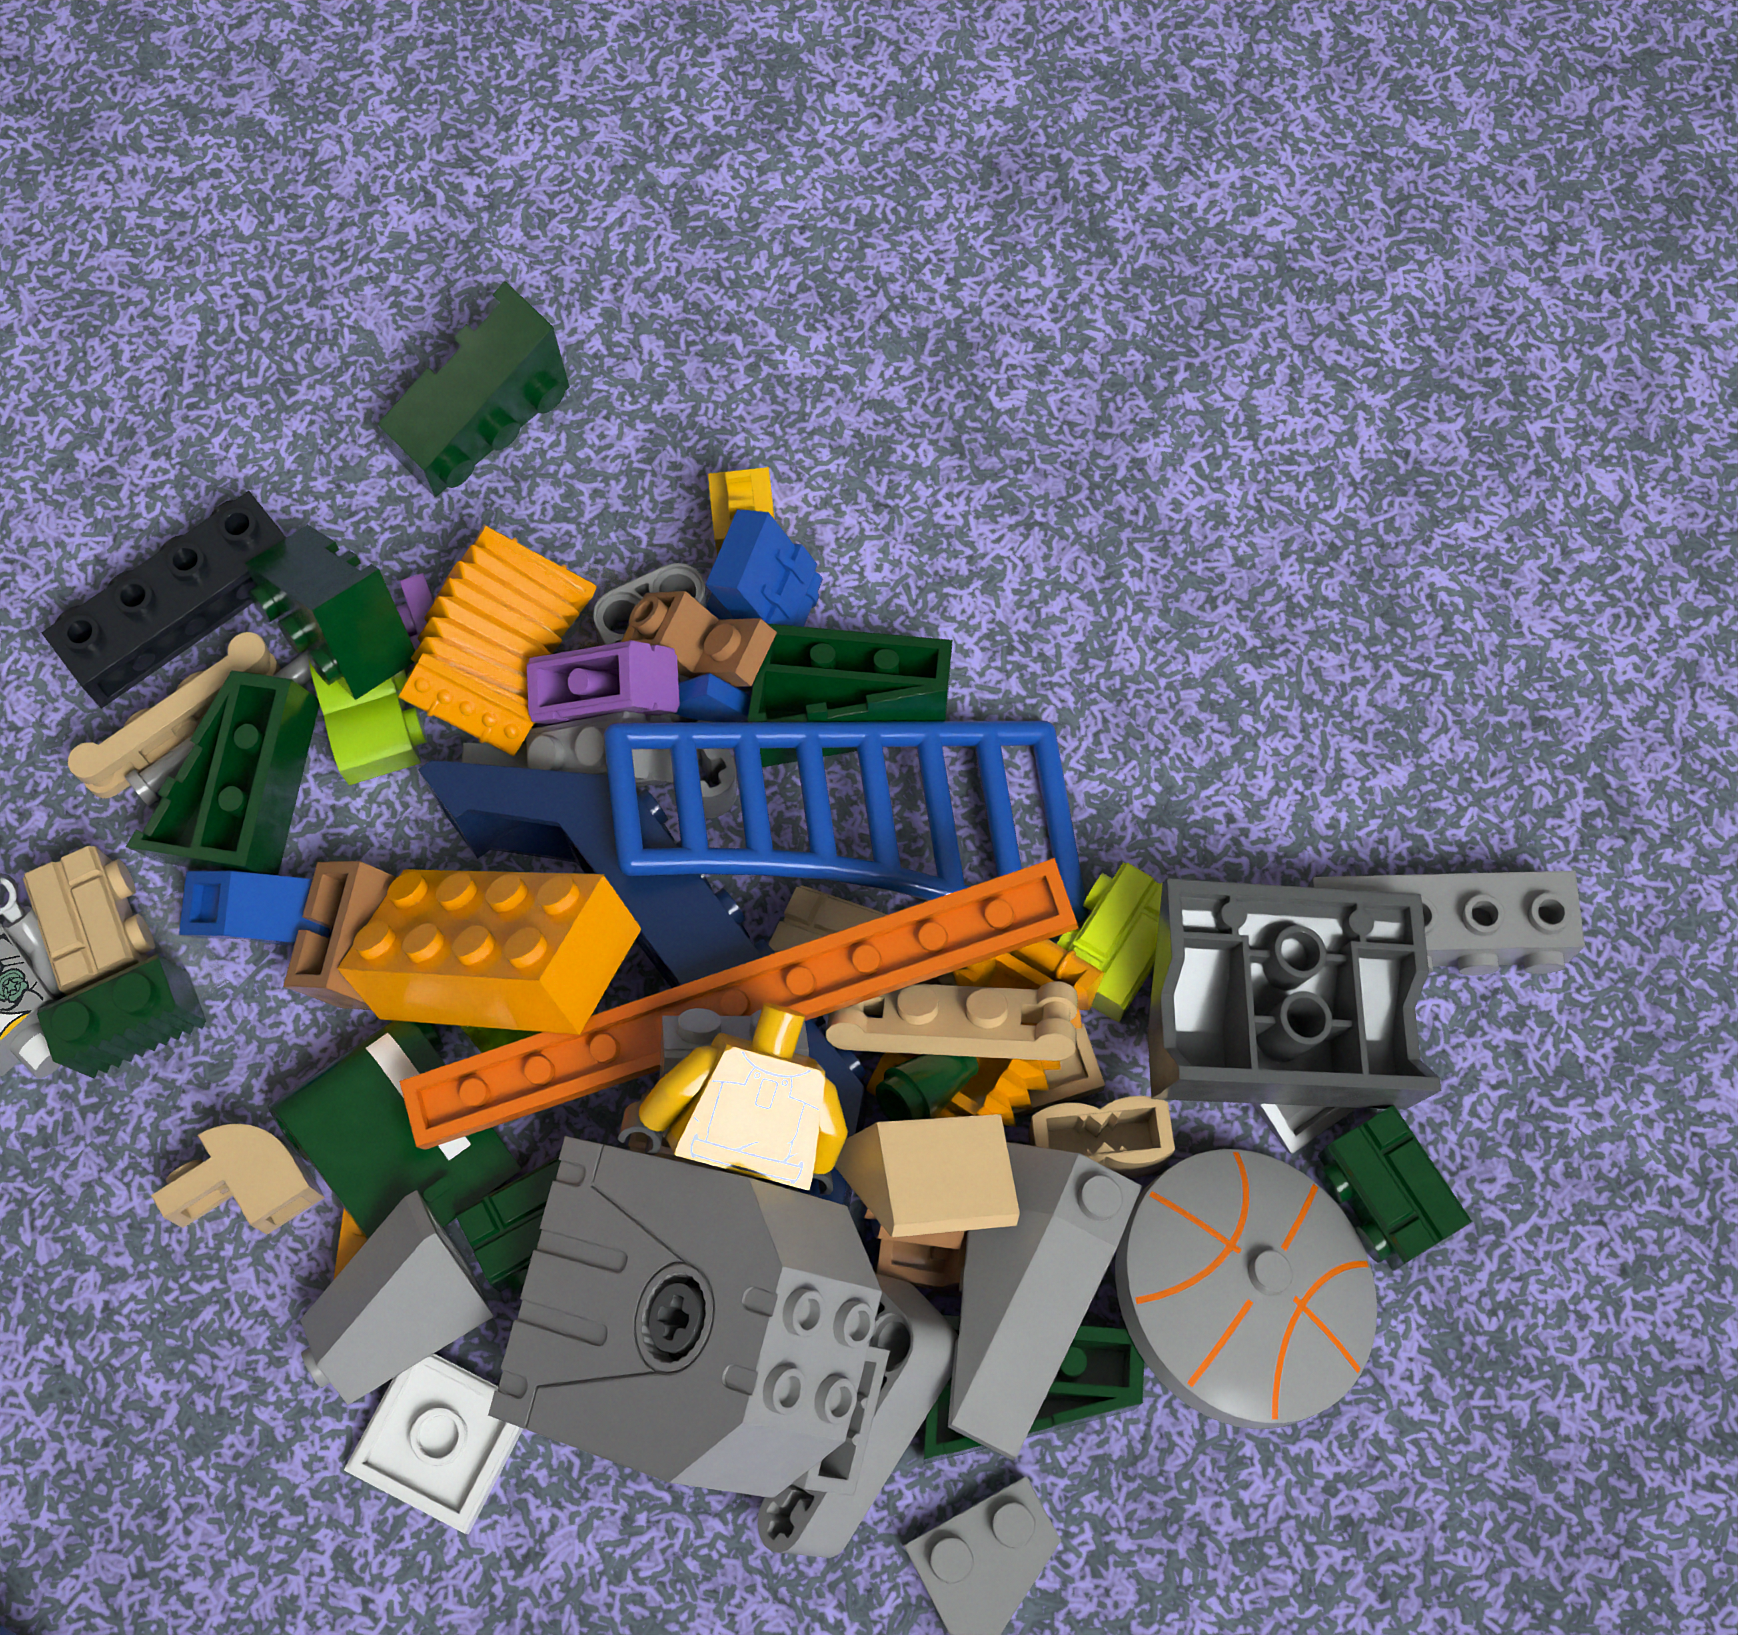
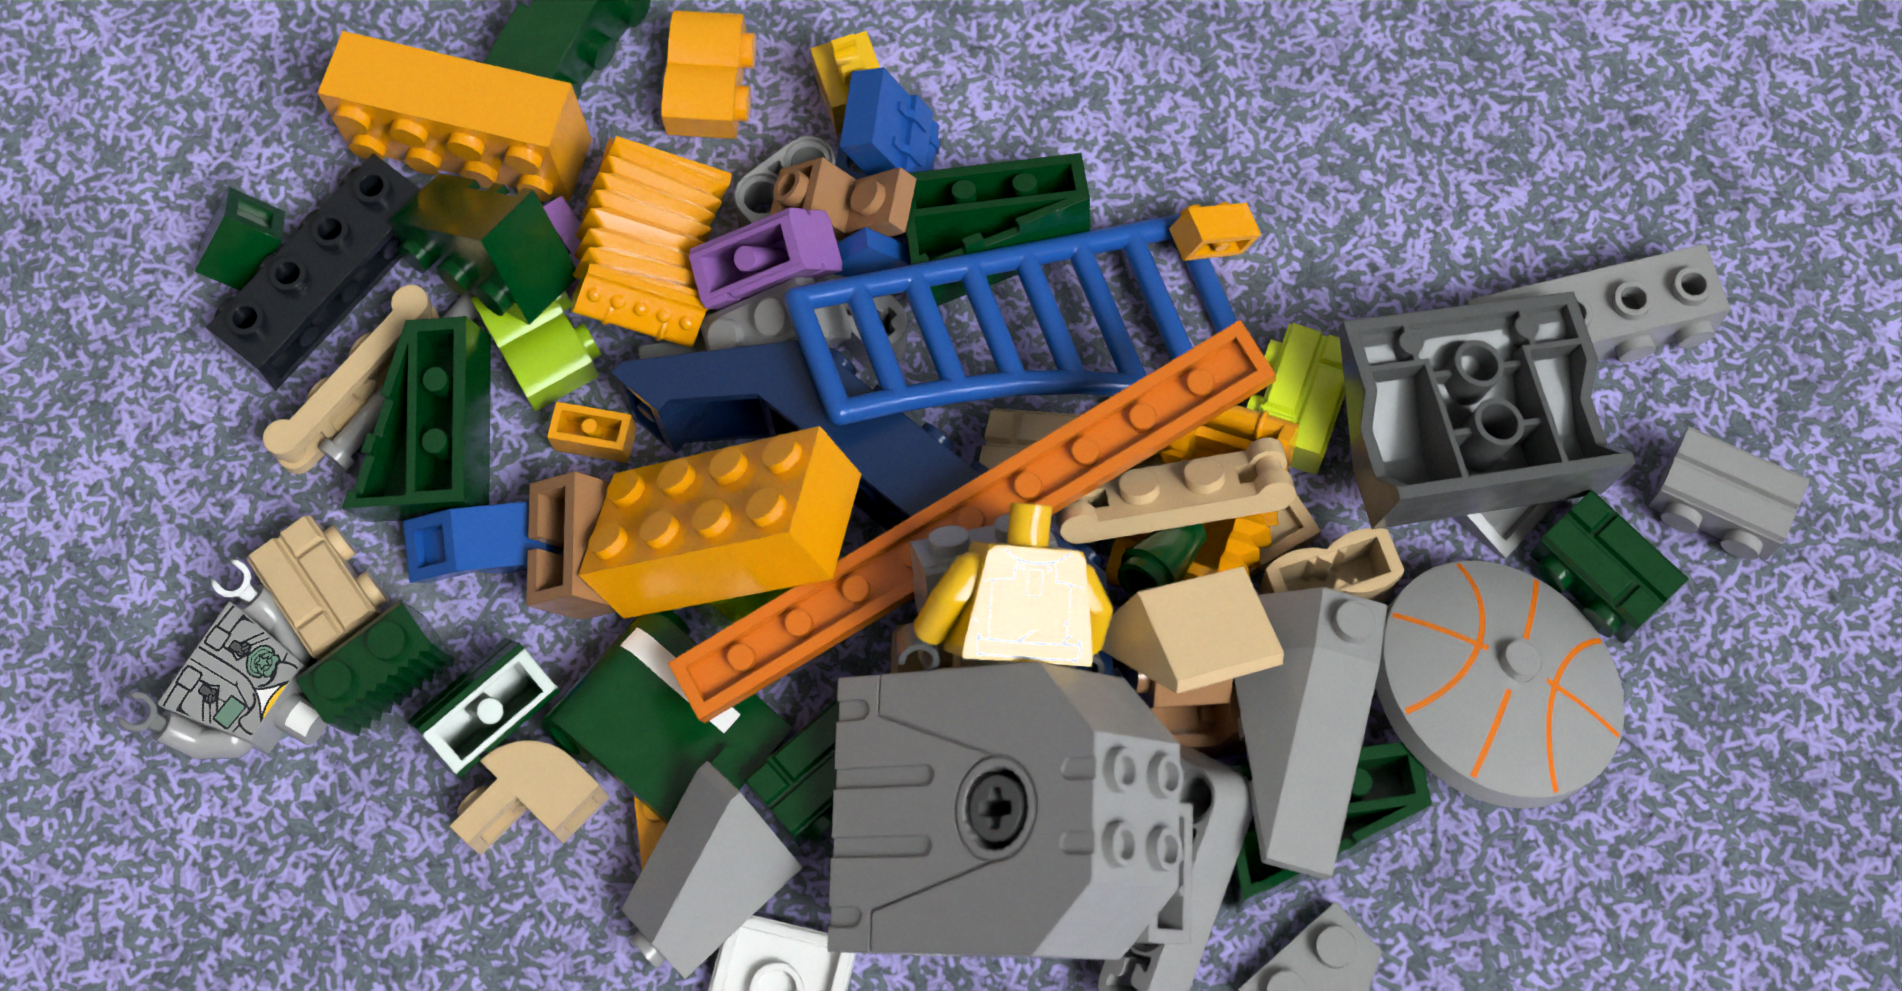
camera: 10 degrees left, 0 degrees up
(101, 548) = (239, 239): none -> dark green panel
(214, 1080) = (483, 706): none -> brick
(339, 471) = (456, 116): none -> light orange brick
(397, 820) = (592, 432): none -> light orange piece
(601, 477) = (706, 74): none -> light orange brick
(1073, 747) = (1214, 231): none -> light orange piece
(1537, 1140) = (1728, 495): none -> light grey brick

